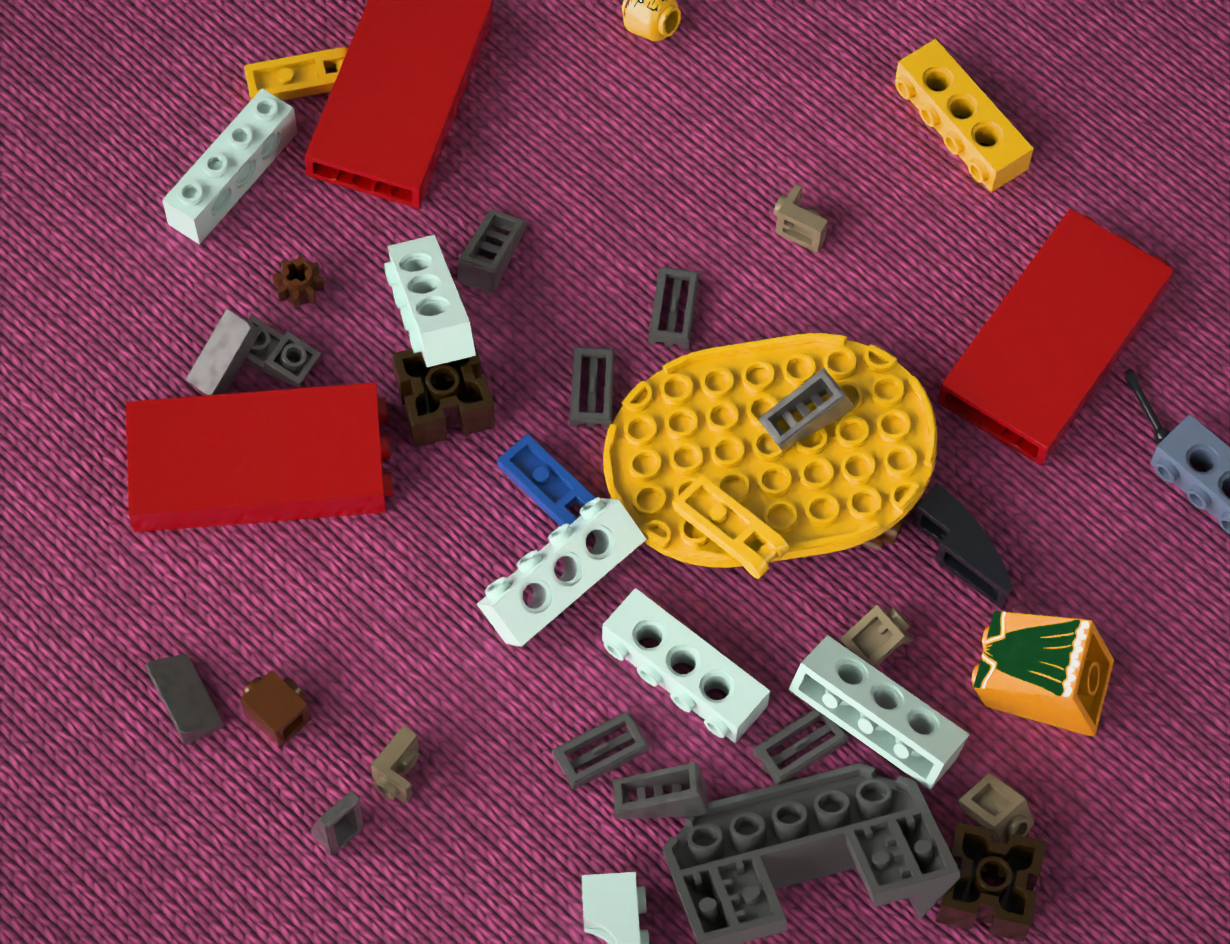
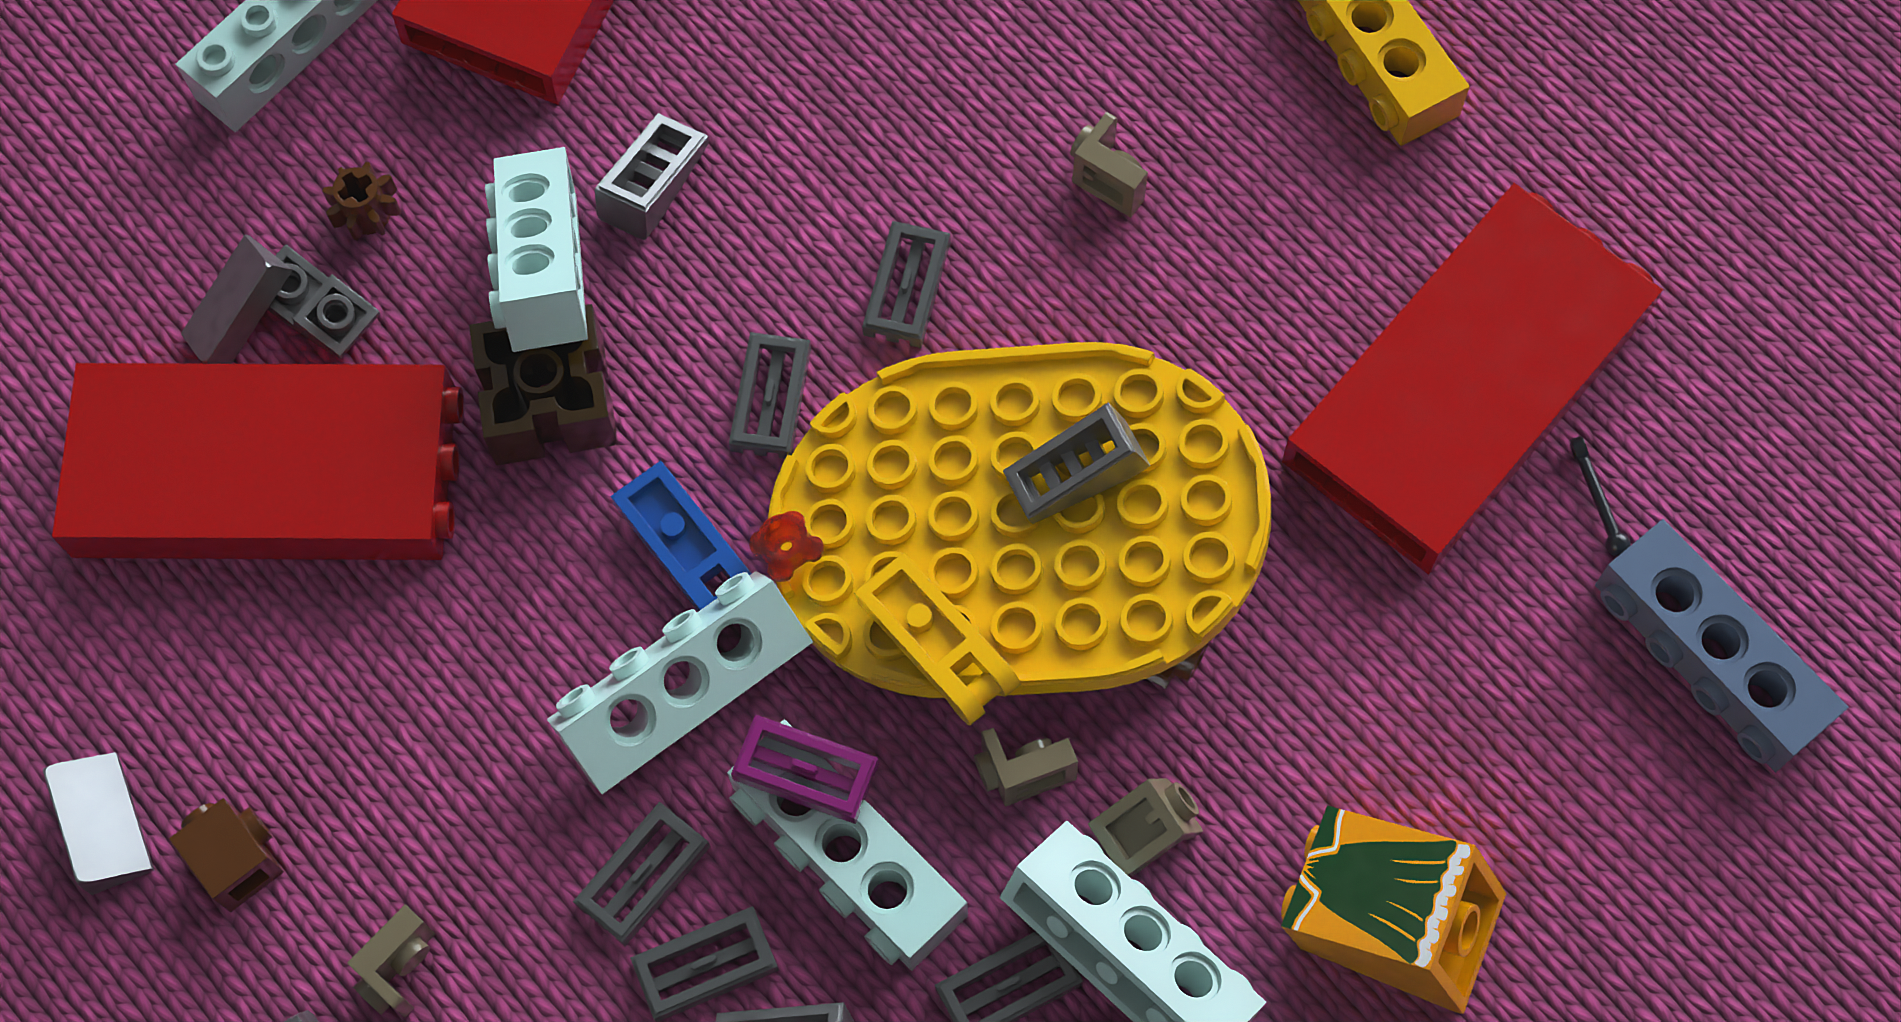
camera: 10 degrees right, 5 degrees up
(531, 726) = (662, 888): none -> dark grey tile
(617, 469) = (780, 530): none -> clear red plate
(652, 631) = (797, 793): none -> magenta tile
(798, 610) = (1035, 769): none -> dark tan bracket
(963, 545) = (1293, 692): black slope -> none

